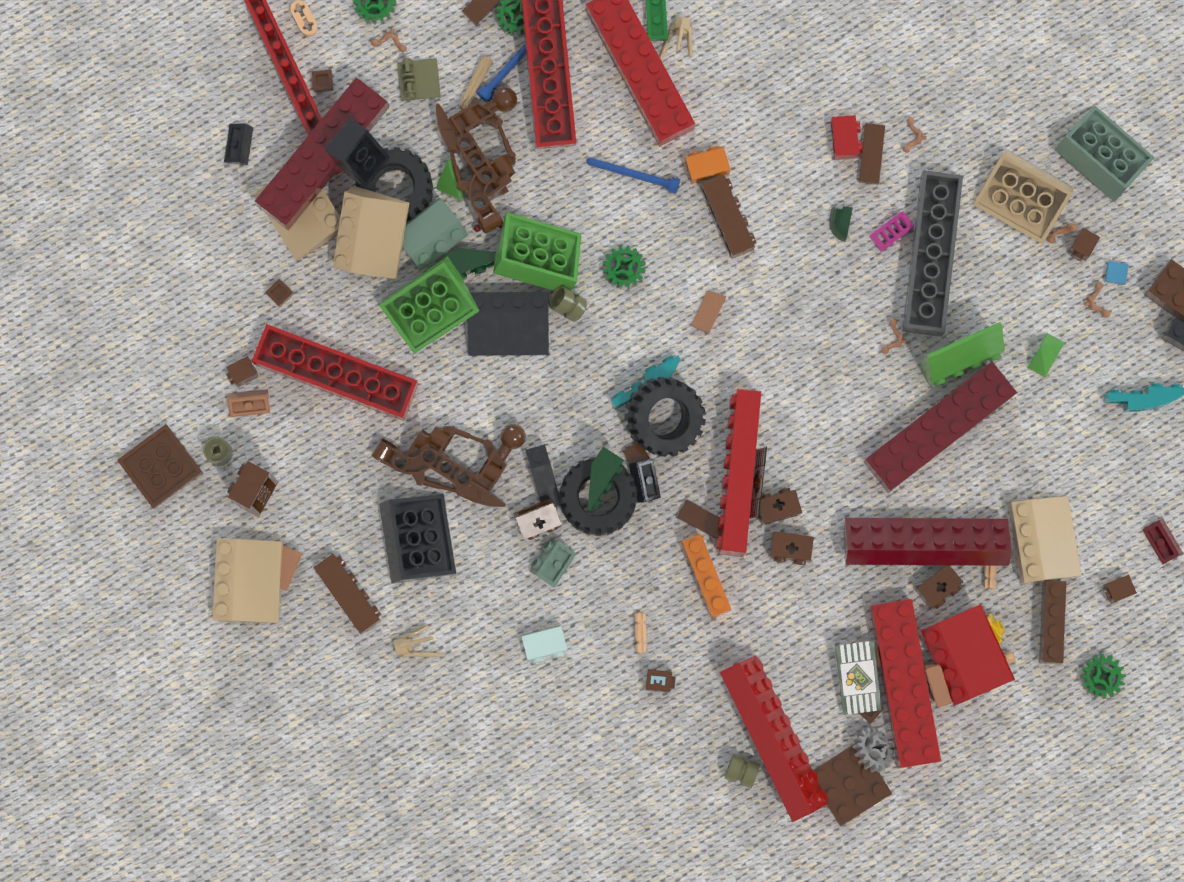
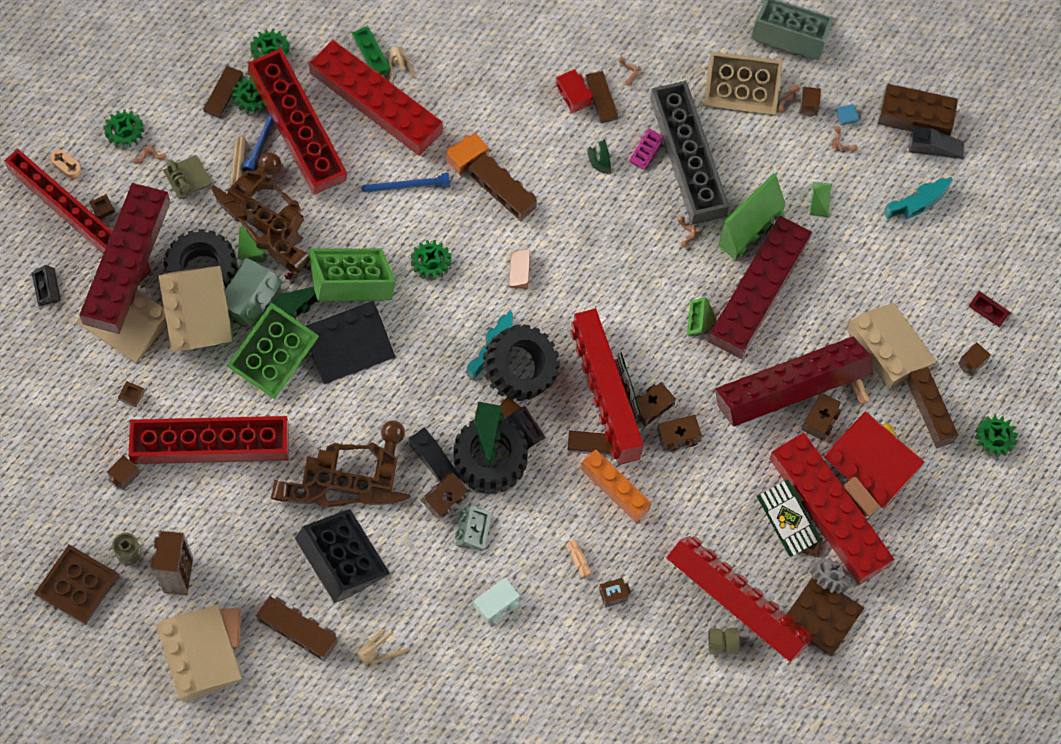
camera: 25 degrees left, 15 degrees down
(248, 403) = (139, 499): nougat slope -> none
(357, 153) = (157, 239): black brick -> none
(567, 303) = (393, 305): olive wheel -> none
(866, 435) = (700, 316): none -> bright green slope

